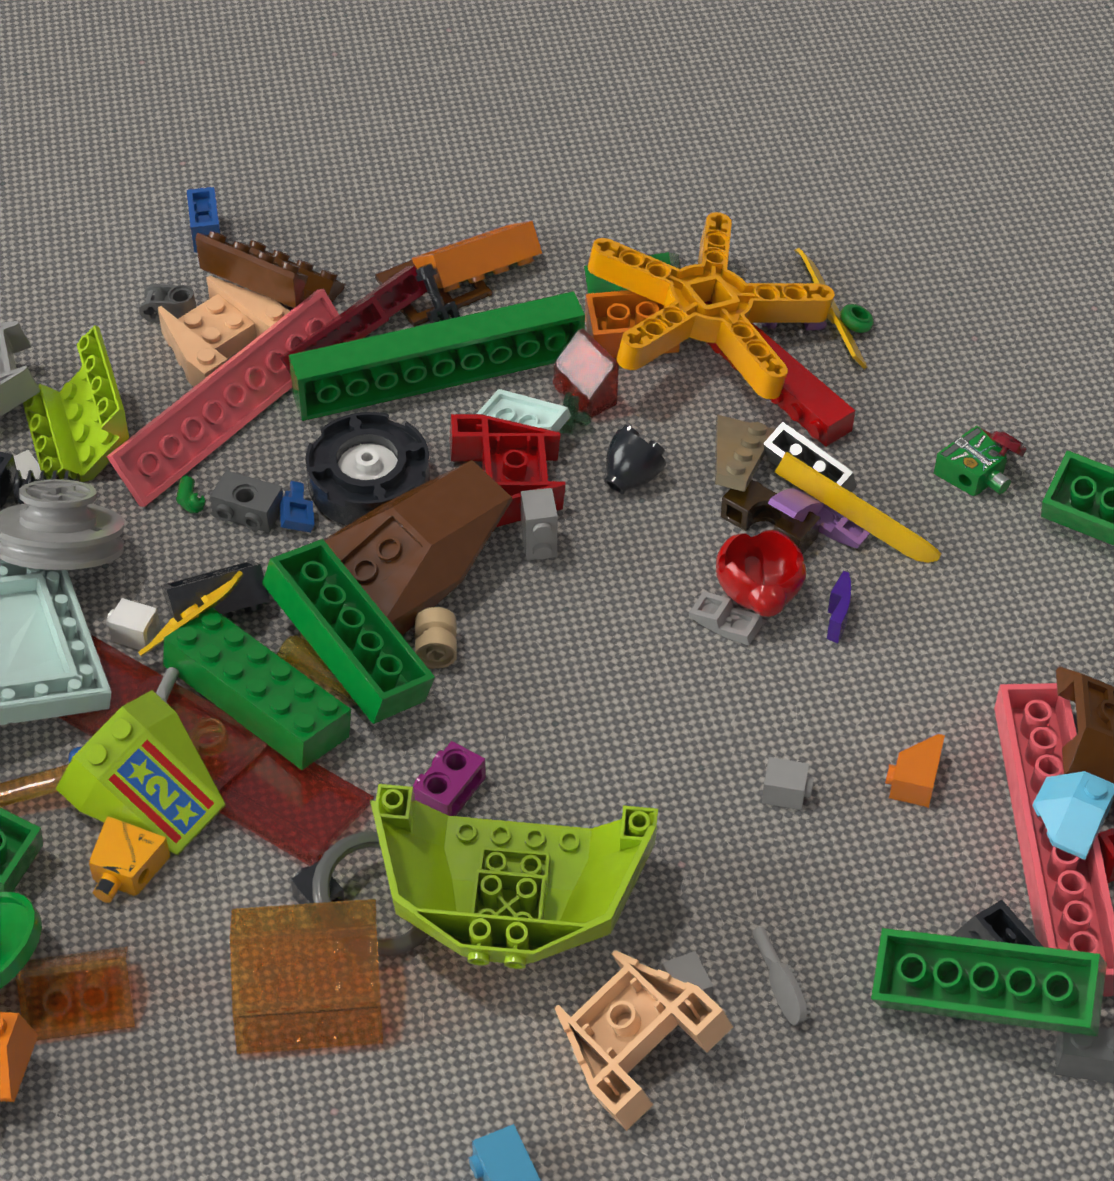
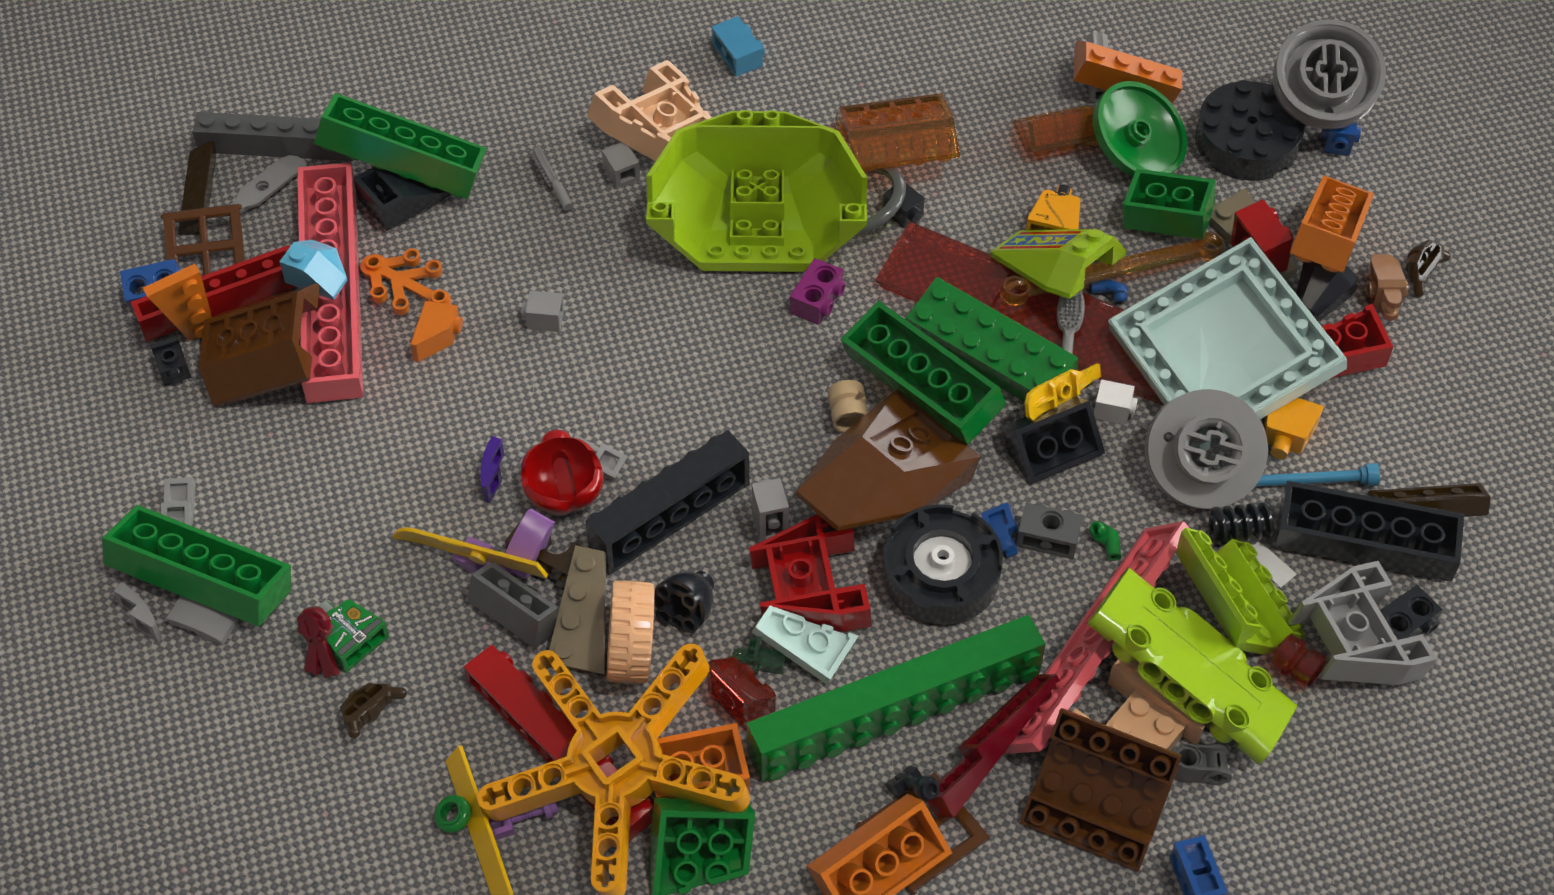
camera: 175 degrees right, 5 degrees up
(45, 365) = (1298, 661): none -> clear red wheel
(158, 337) = (1193, 665): none -> lime panel
(645, 541) = (669, 501): none -> black brick
(691, 404) = (630, 632): none -> light nougat tyre
(949, 400) = (366, 705): none -> dark brown piece
(964, 845) = (402, 279): none -> orange plant

